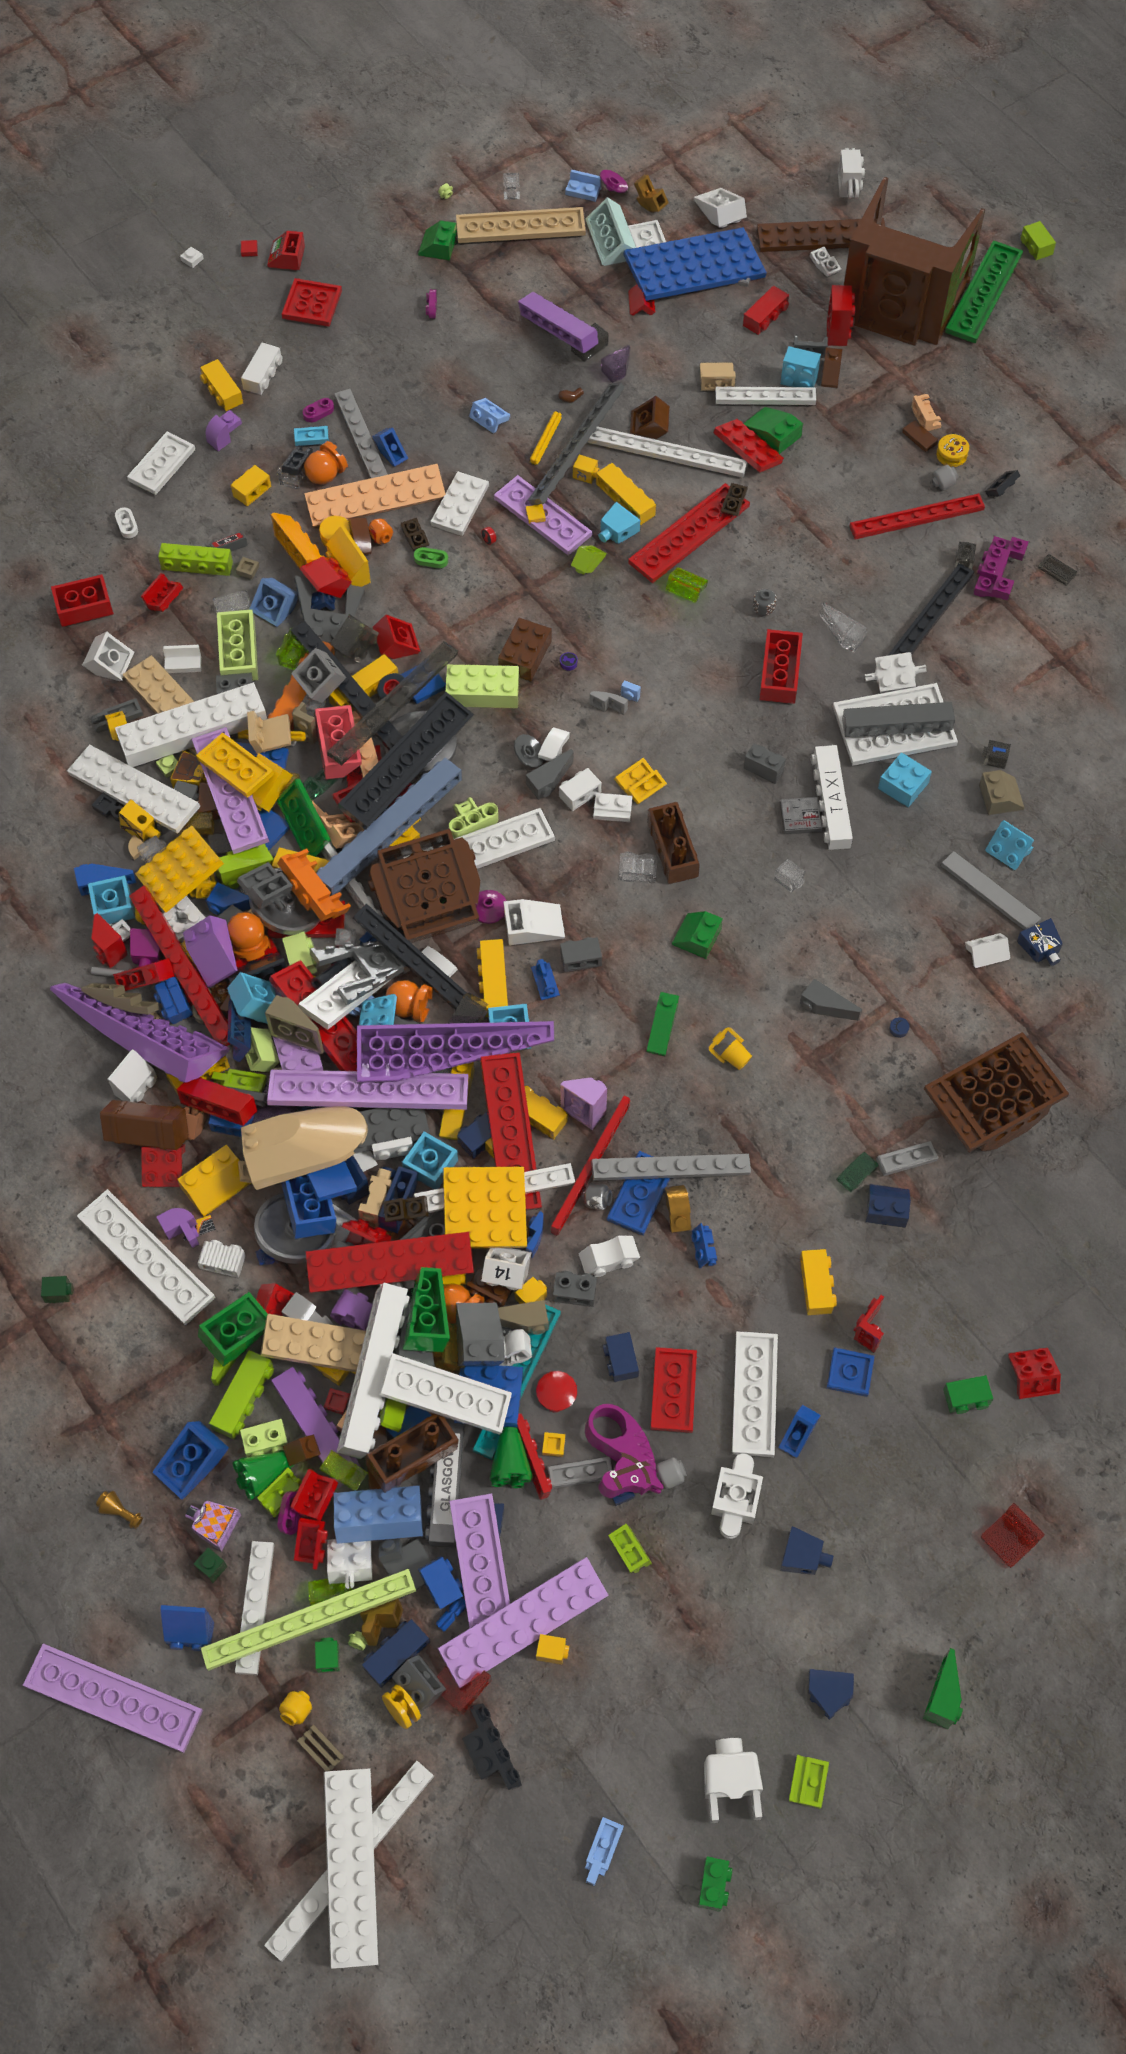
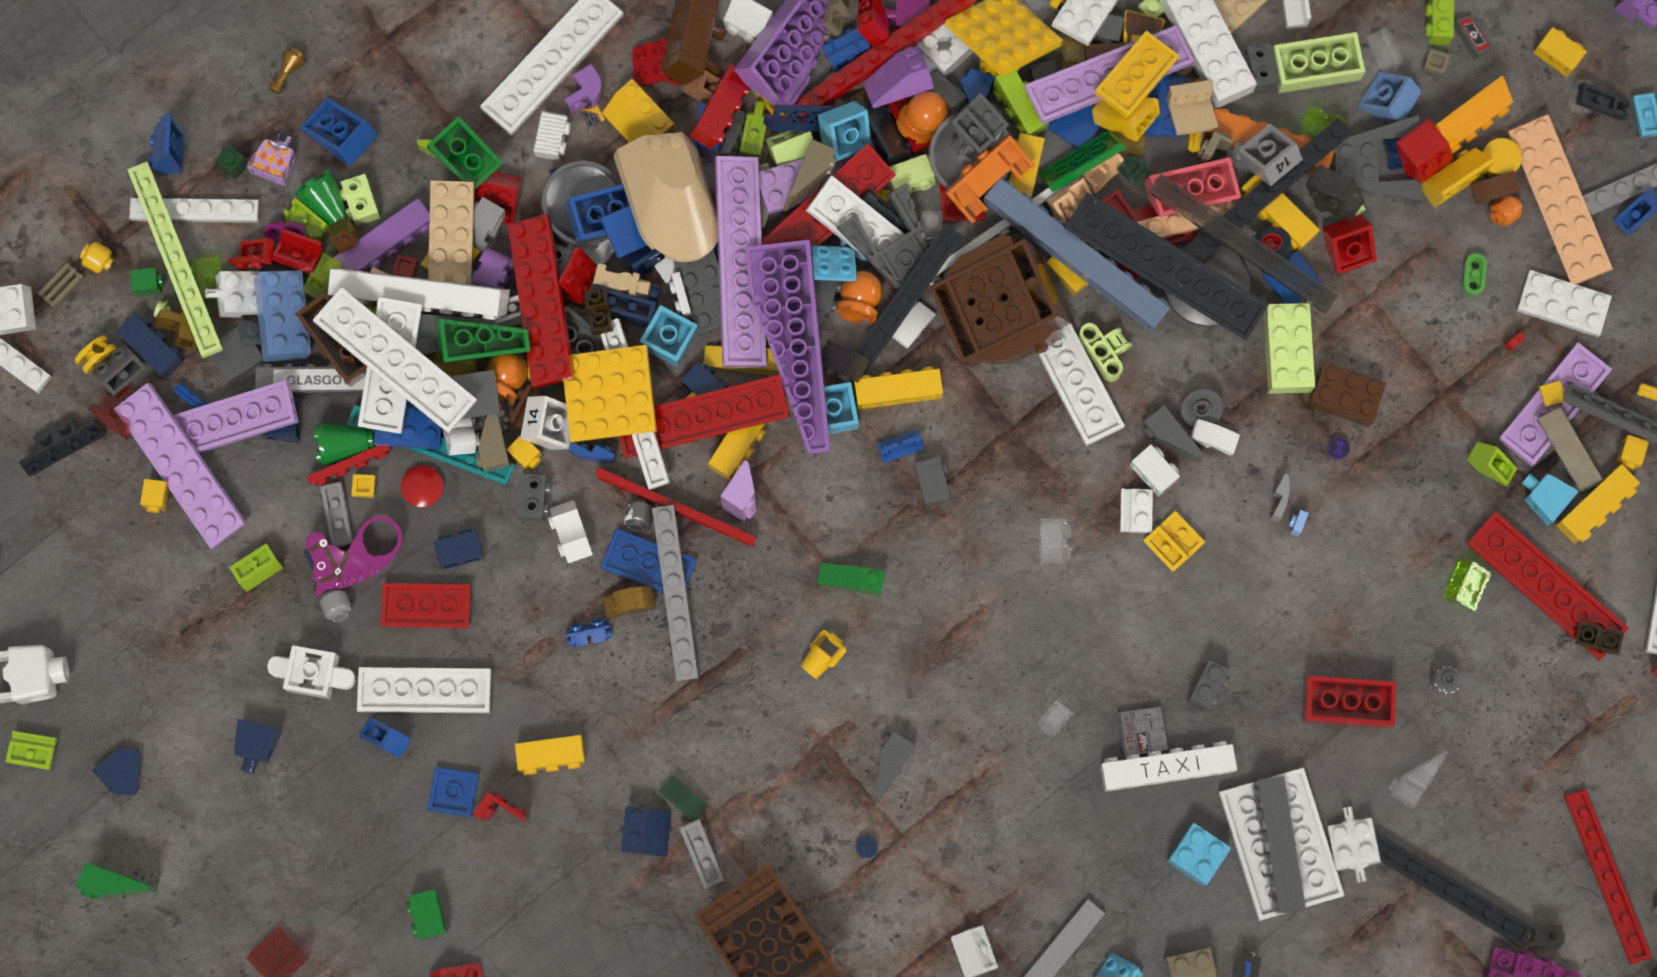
camera: 85 degrees right, 15 degrees up
(113, 1698) = (105, 89): lavender plate -> none
(241, 1395) = (400, 170): lime brick -> none
(324, 464) = (1595, 132): orange tile -> none
(414, 534) = (1509, 253): dark brown slope -> none
(440, 1582) = (217, 382): blue brick -> none
(444, 1381) = (394, 360): none -> white plate
(490, 913) = (991, 388): magenta dish -> none
(532, 921) = (972, 427): white slope -> none
(580, 505) = (1569, 449): none -> dark tan slope
(673, 843) = (1086, 579): reddish brown piece -> none
(698, 933) = (971, 614): green slope -> none

